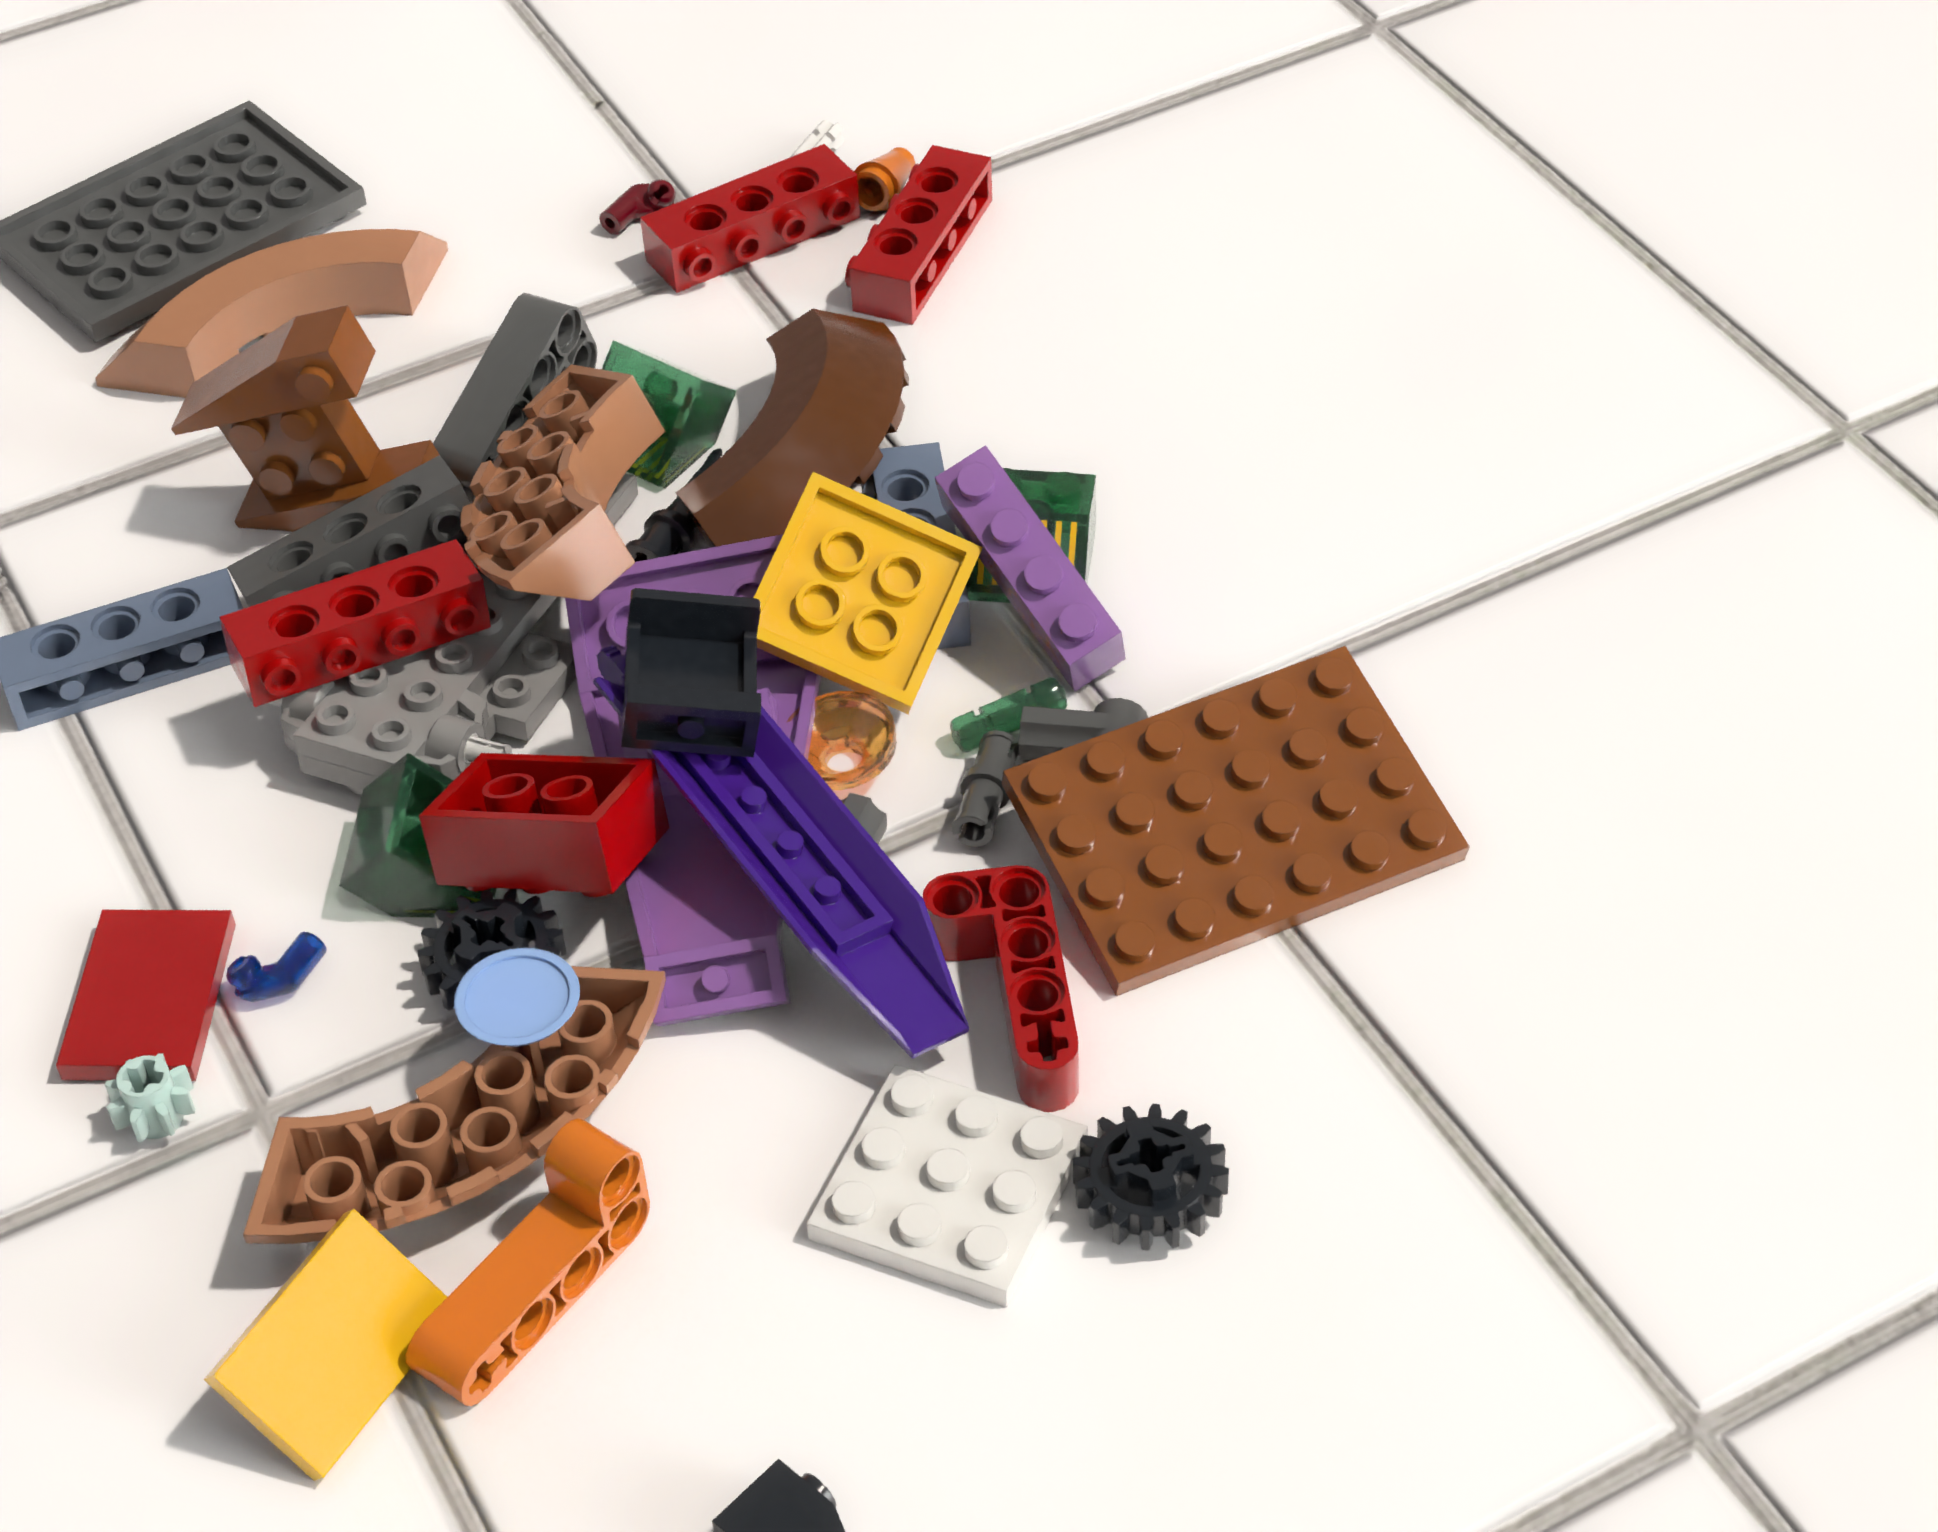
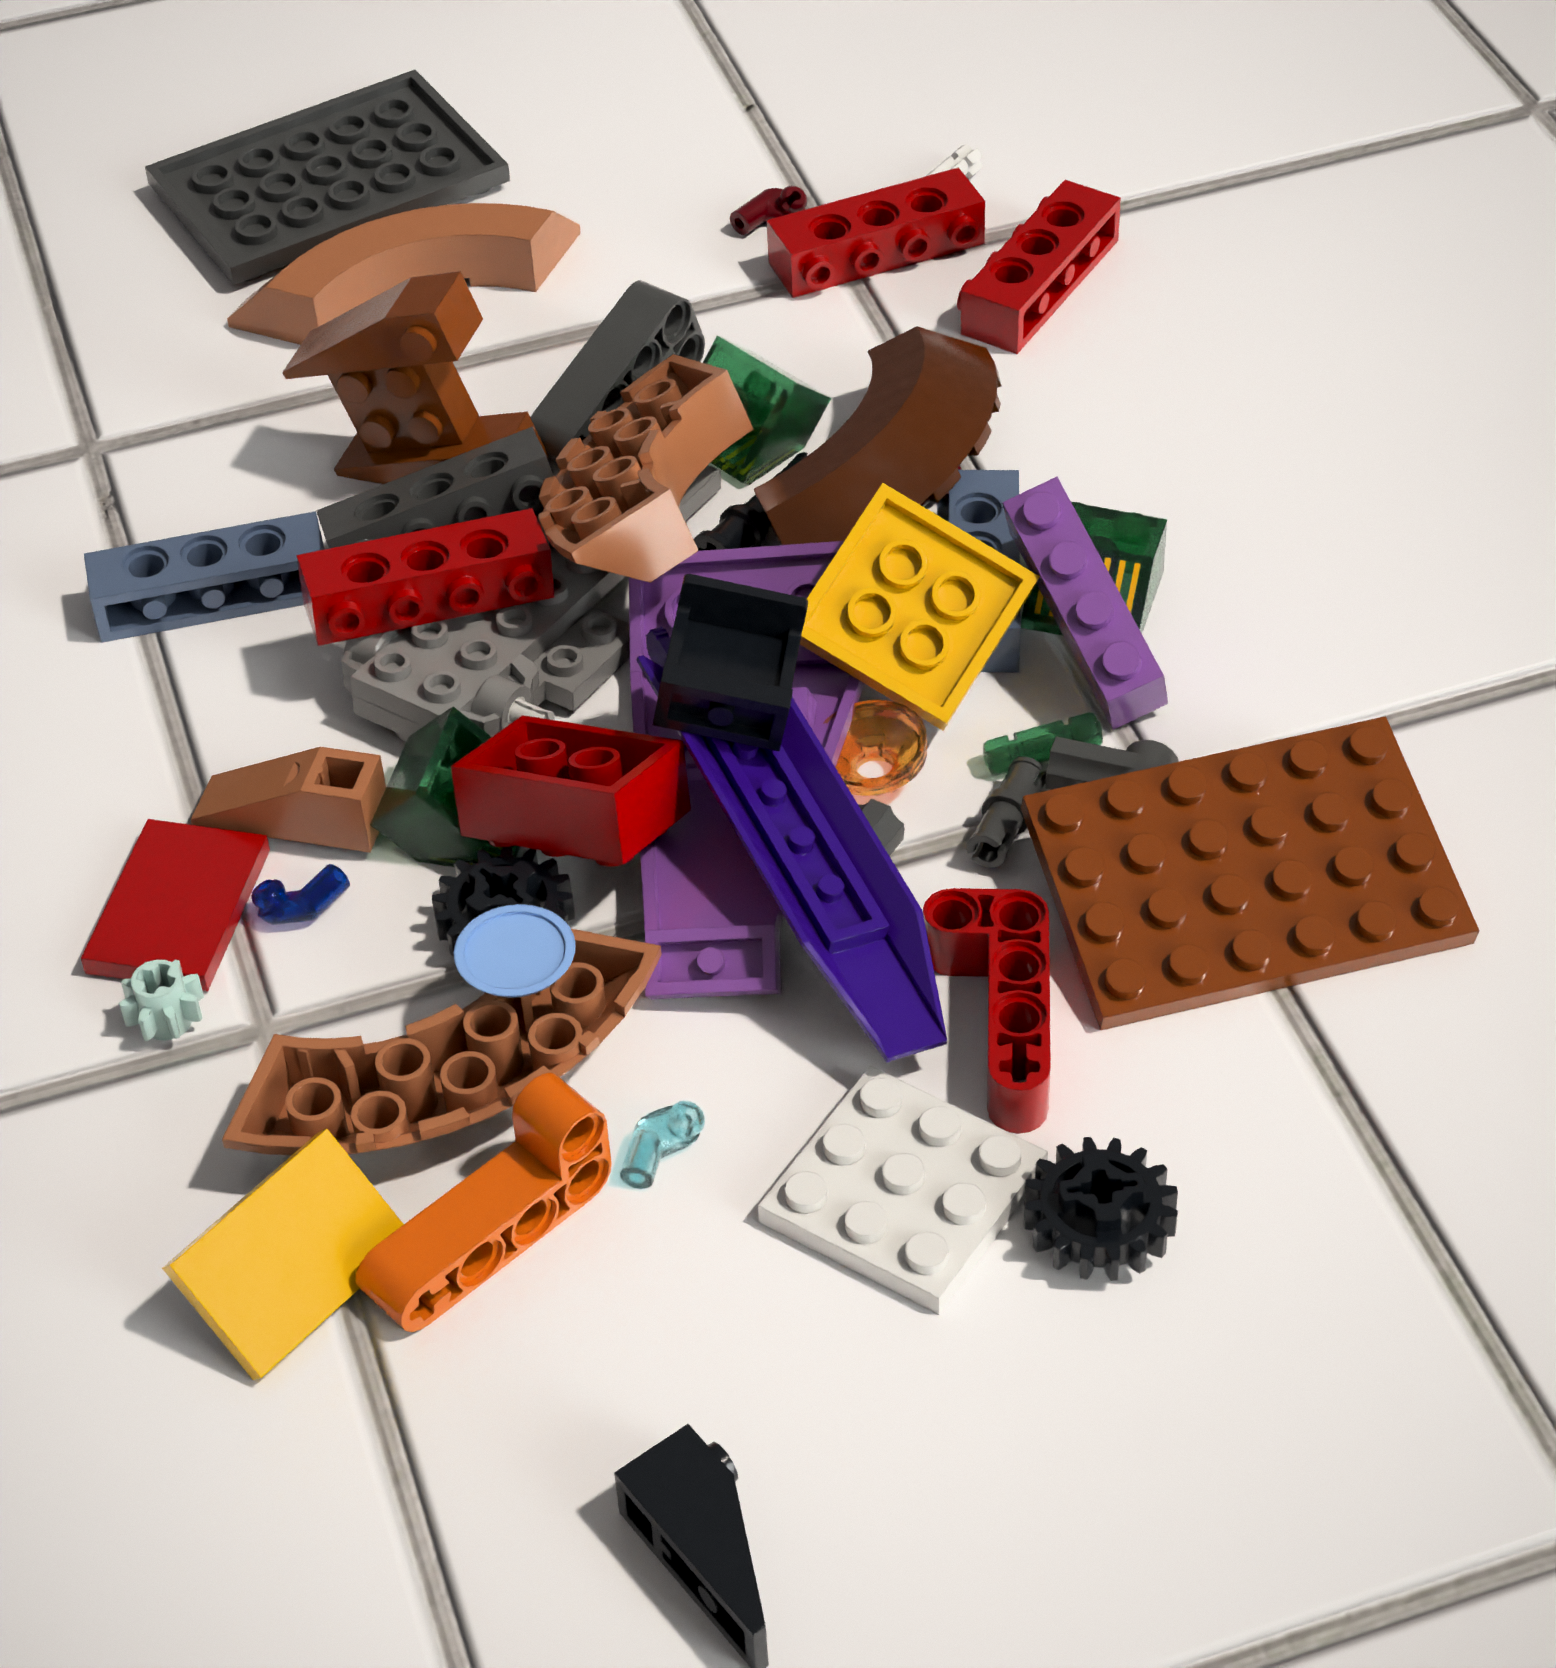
camera: 10 degrees right, 0 degrees up
(259, 867) = (301, 797): none -> nougat slope
(691, 1167) = (657, 1137): none -> clear light blue arm
(883, 178) = (1011, 206): orange cone -> none

